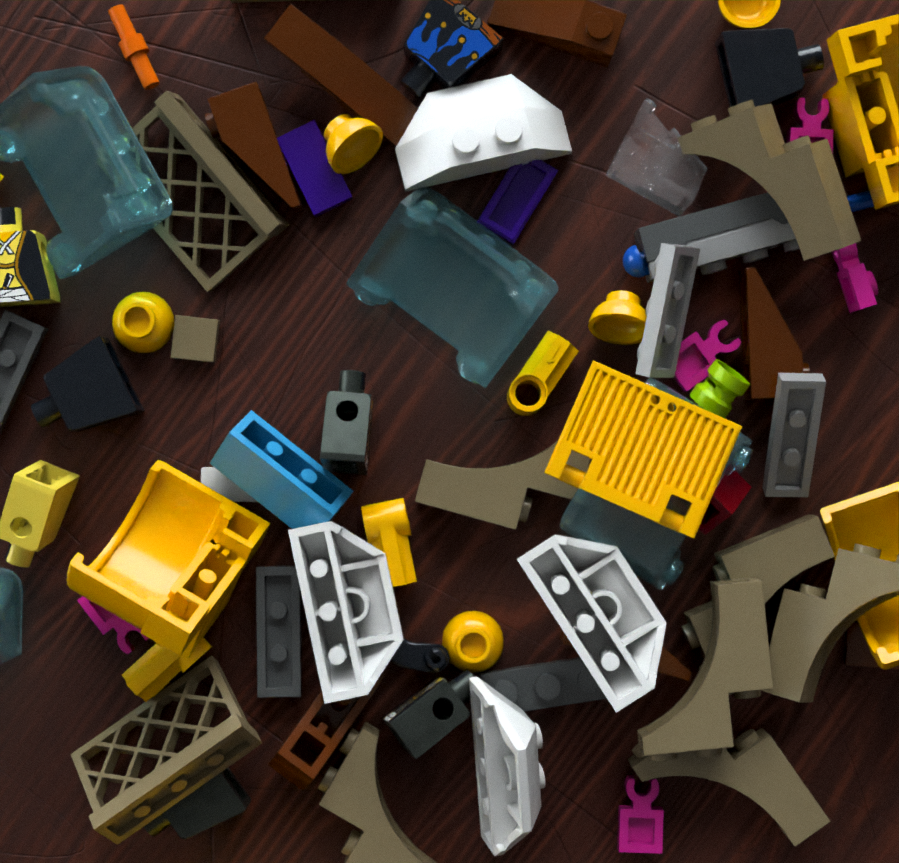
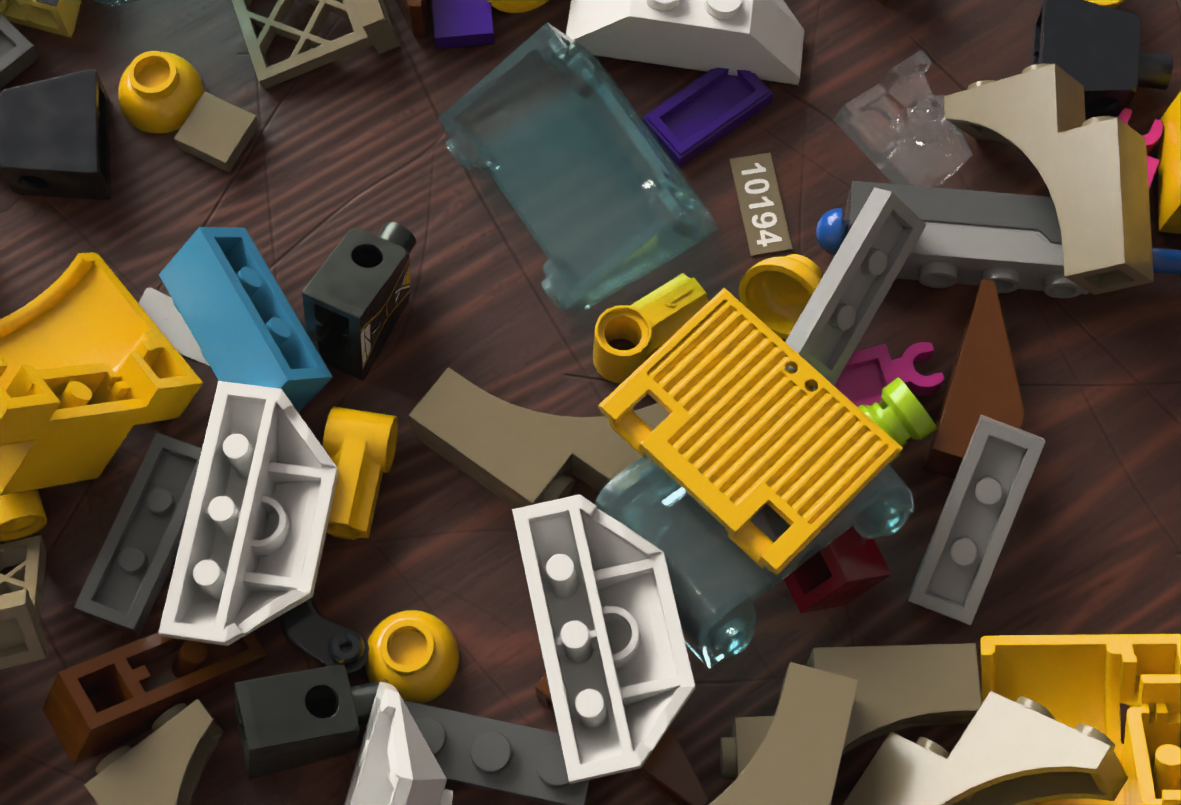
camera: 20 degrees right, 20 degrees down
(577, 252) = (760, 204): none -> dark tan sticker
(856, 283) = (1132, 362): dark pink plate -> none

